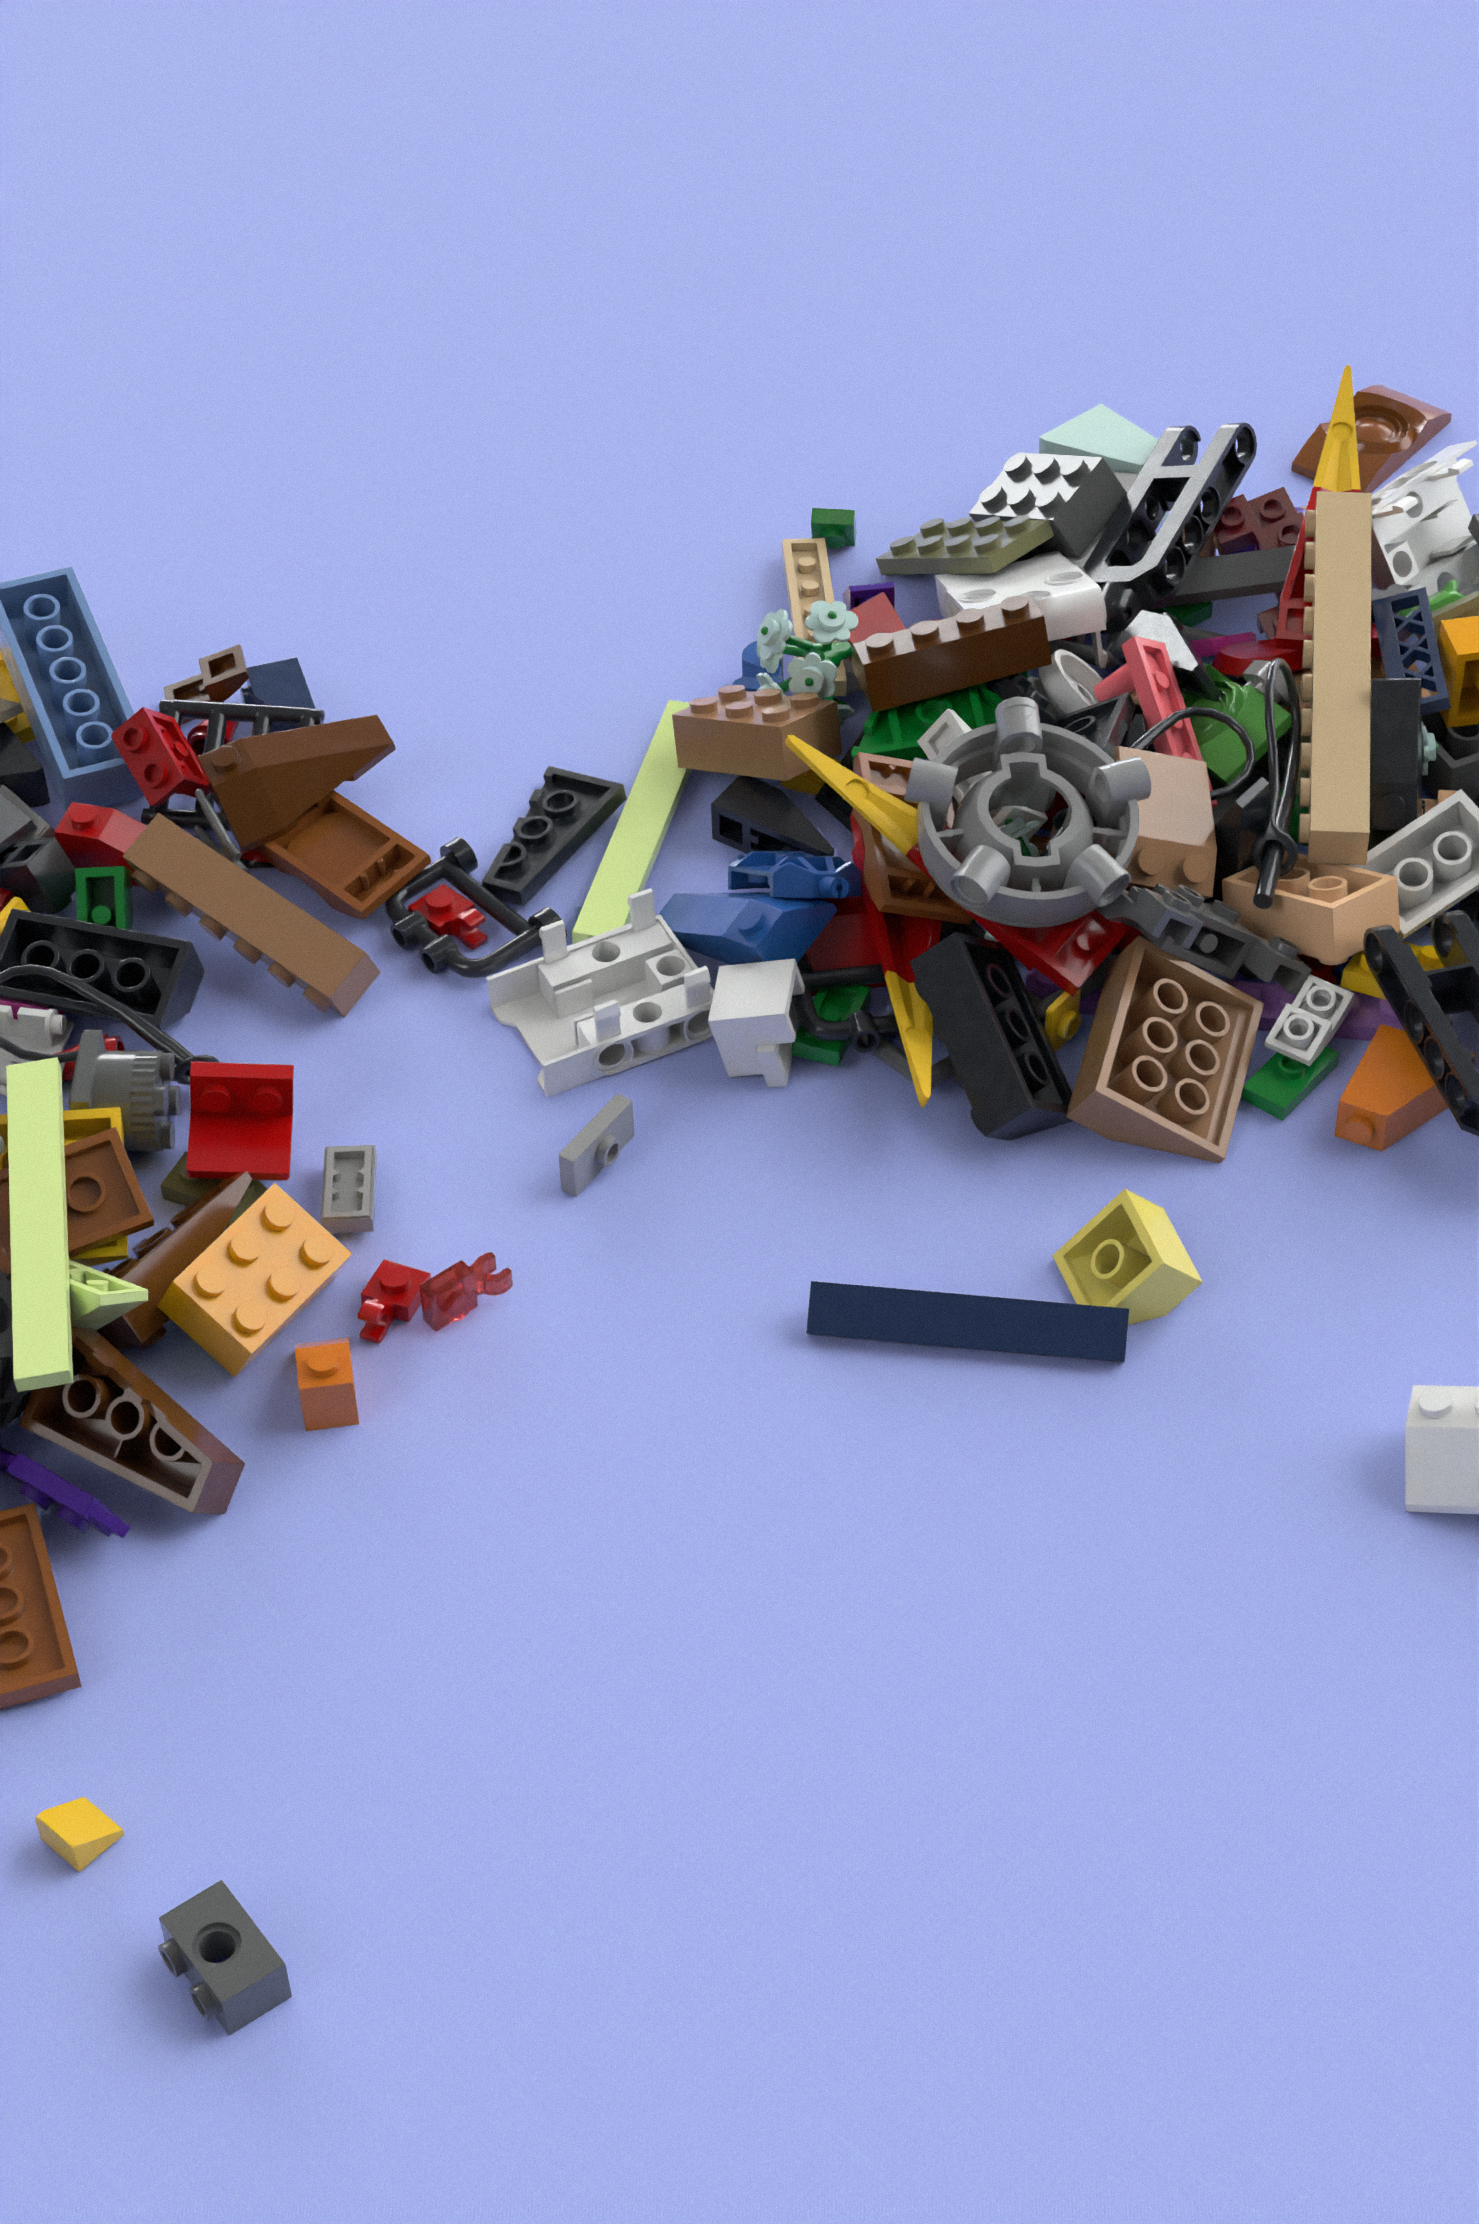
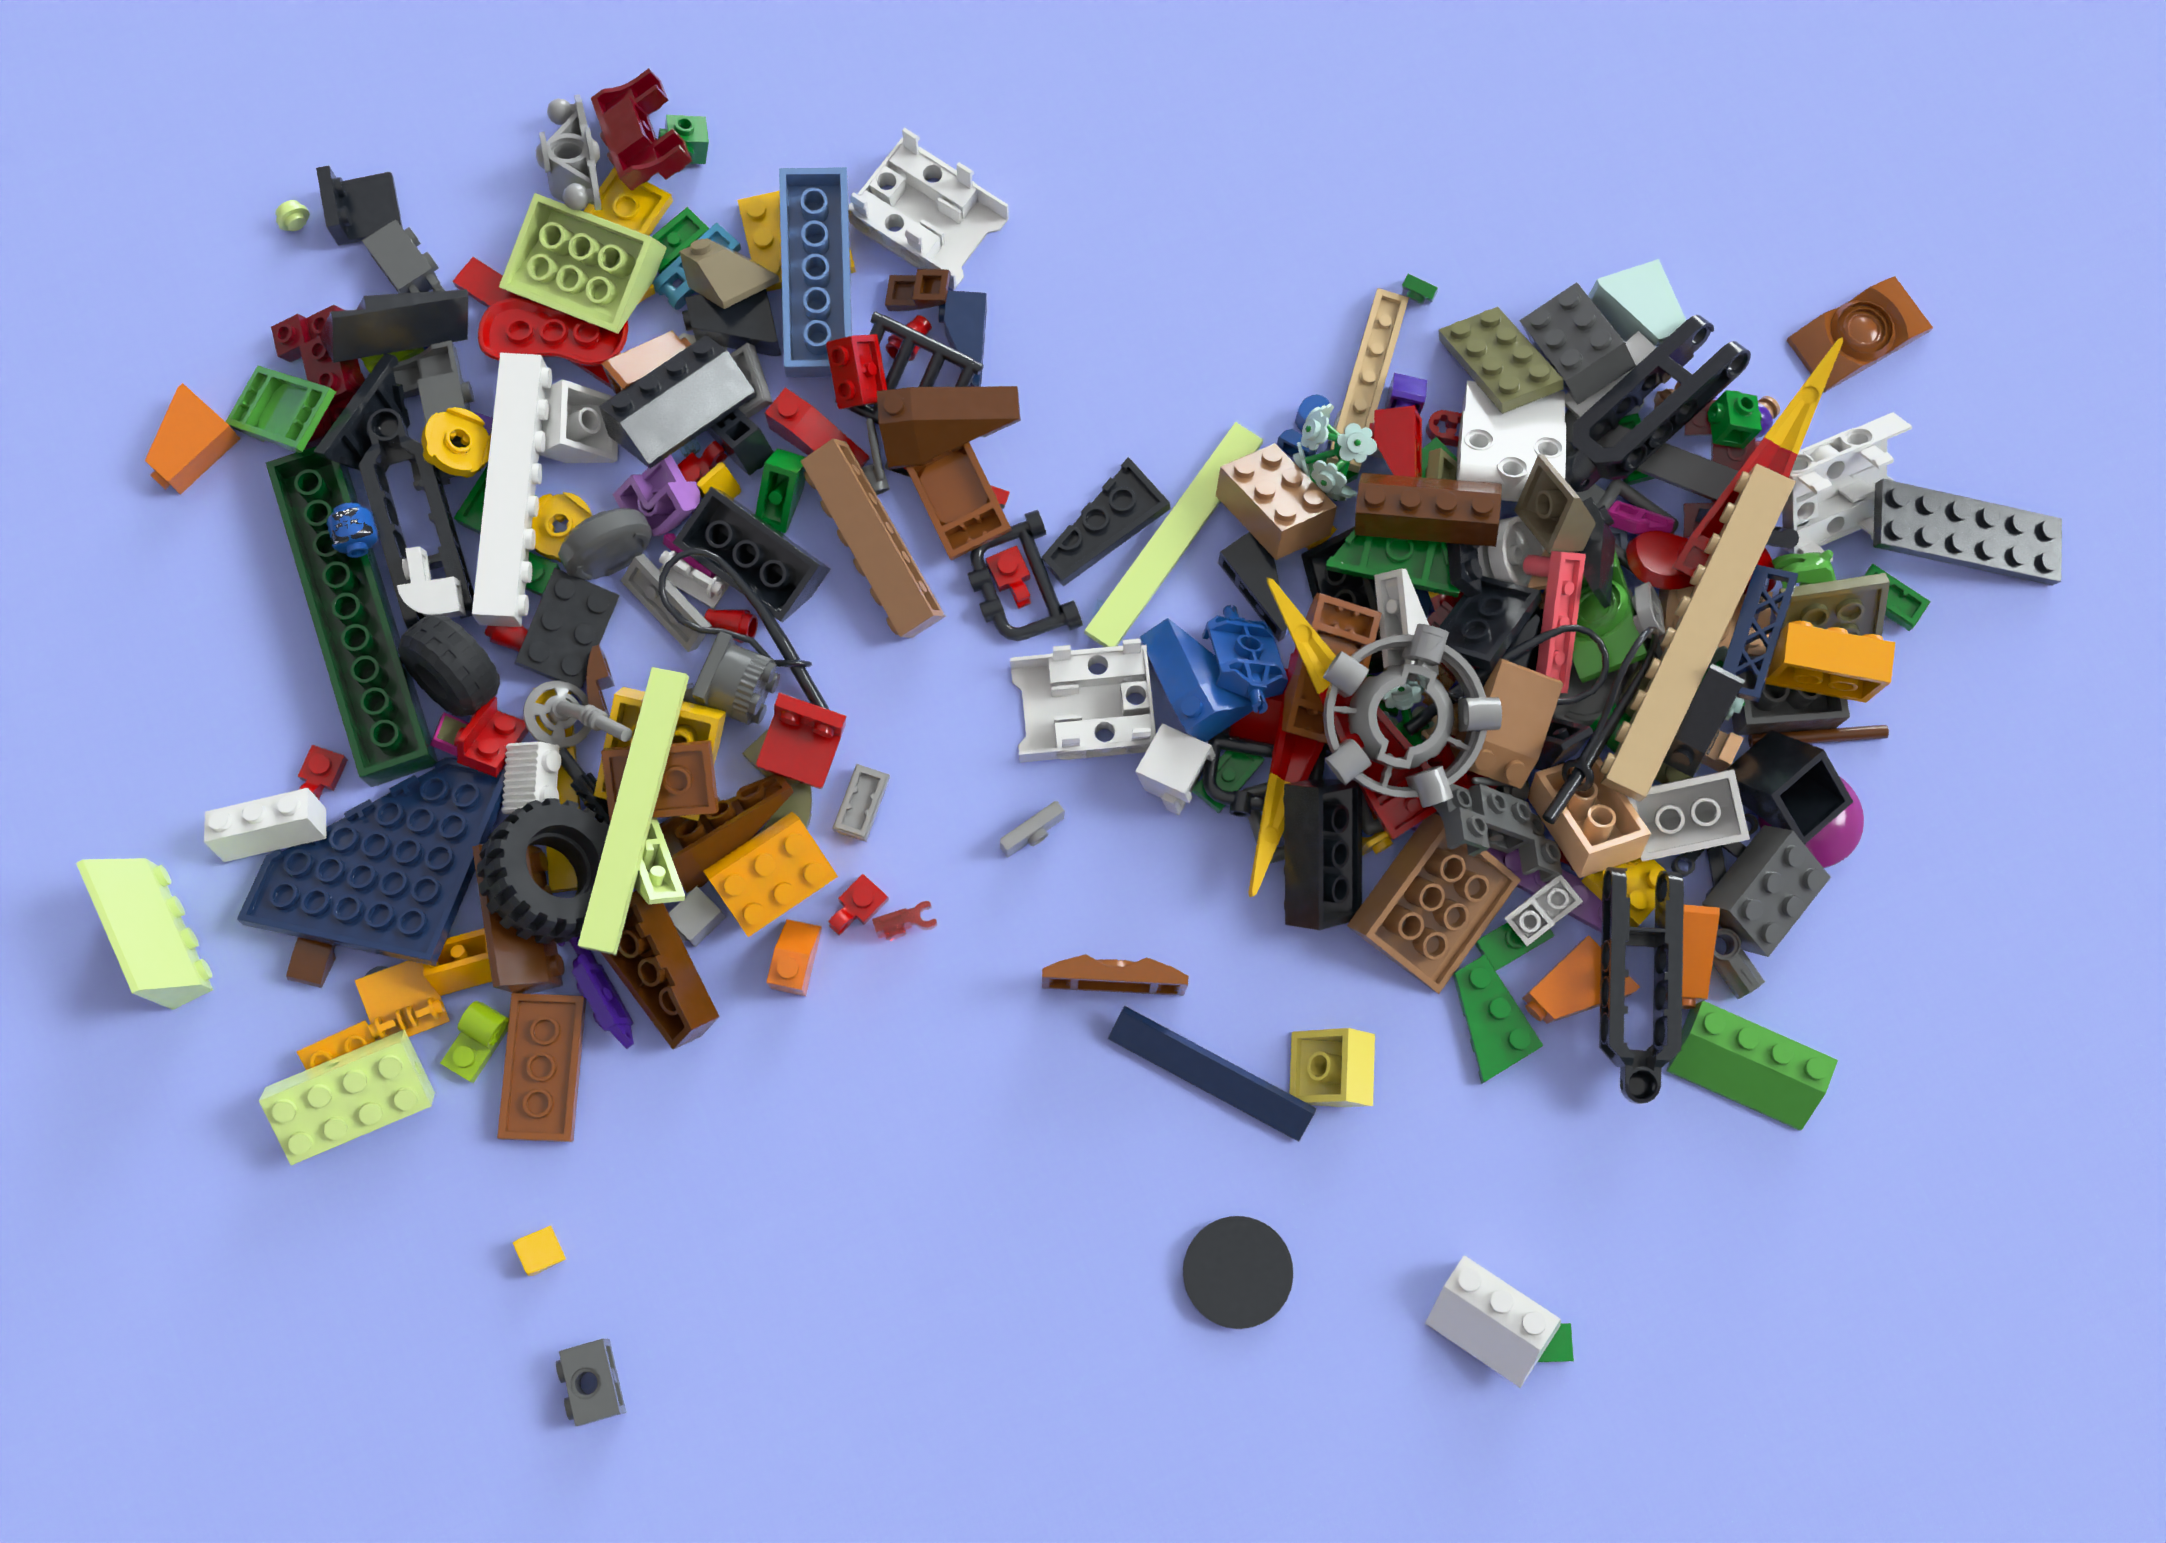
camera: 15 degrees right, 30 degrees up
(171, 1361) = (696, 917): none -> light grey brick
(173, 612) = (938, 219): none -> white piece
(784, 1247) = (1114, 975): none -> dark orange slope
(1102, 605) = (1554, 510): none -> dark tan slope
(1118, 1530) = (1238, 1272): none -> black tile
(1269, 492) = (1735, 419): none -> green brick
(1314, 1163) = (1494, 1020): none -> green wing

